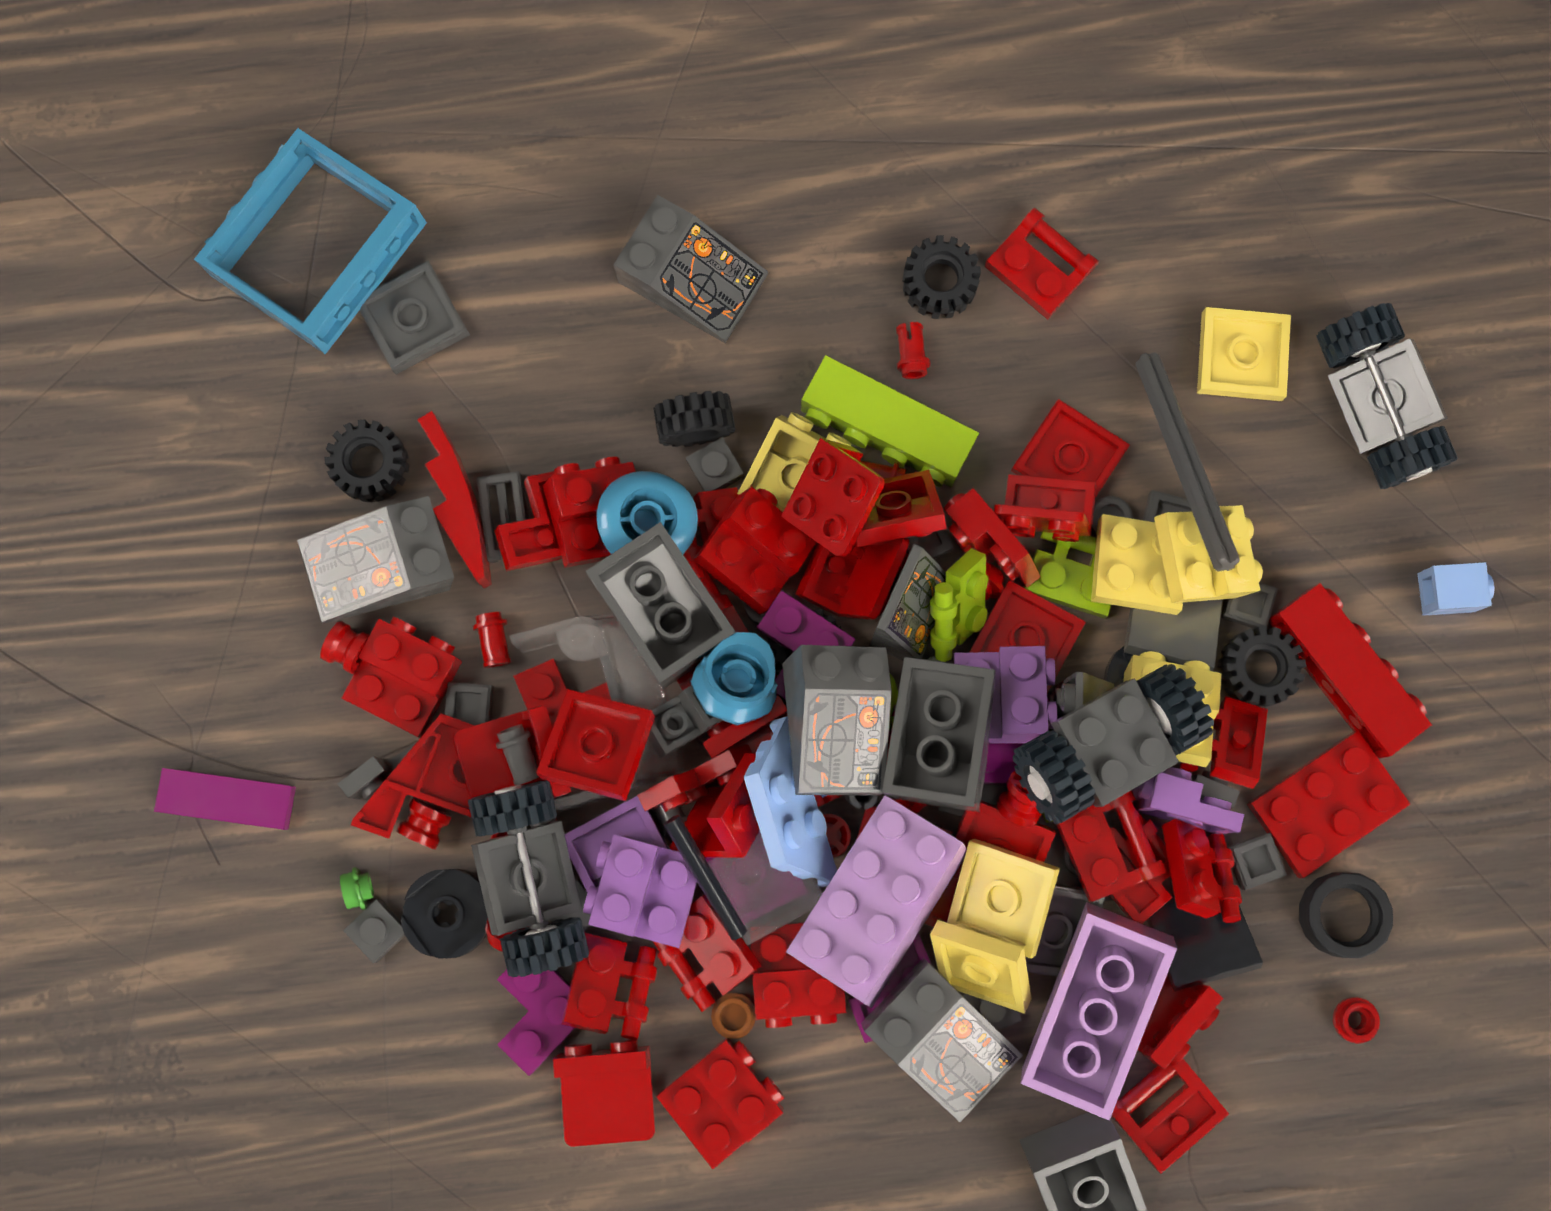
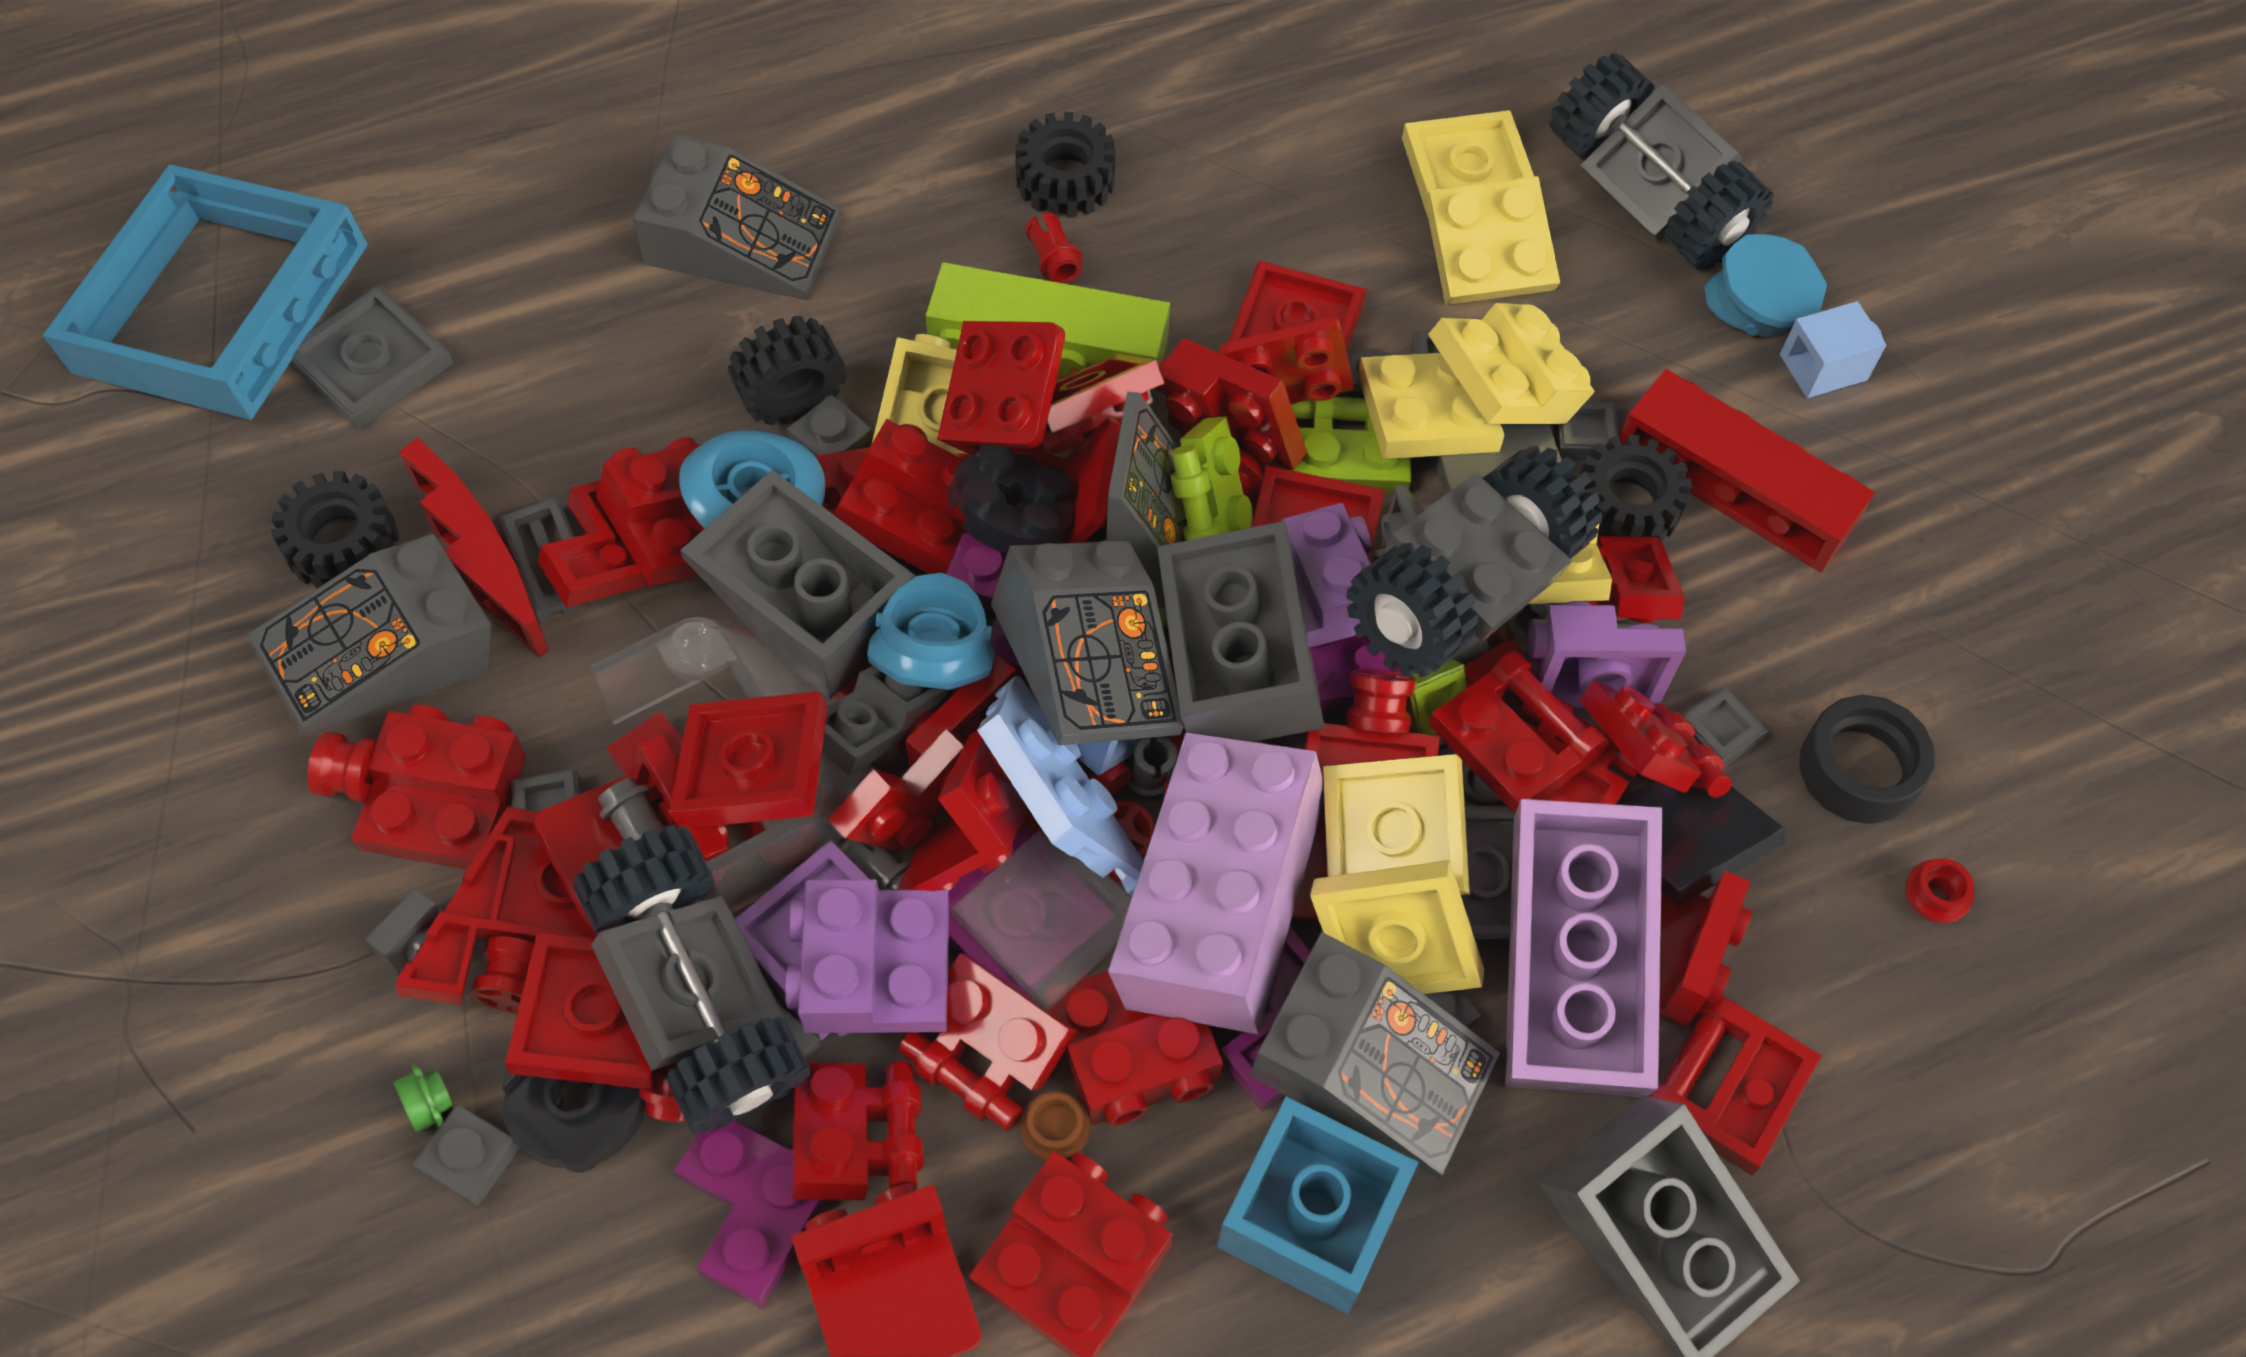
camera: 20 degrees left, 20 degrees down
(225, 799) = (187, 1027): magenta tile -> none
(449, 873) = (572, 1020): none -> red plate
(492, 639) = (560, 697): red pin -> none
(705, 877) = (959, 909): black bar -> none
(803, 595) = (999, 475): none -> black plate
(876, 1122) = (1316, 1205): none -> dark azure brick
(1032, 273) = (1182, 143): red plate -> none
(1187, 463) = (1450, 270): dark grey axle -> none
(1238, 427) = (1492, 240): none -> light yellow plate
(1328, 804) = (1785, 636): red plate -> none
(1427, 522) = (1765, 285): none -> dark azure hat

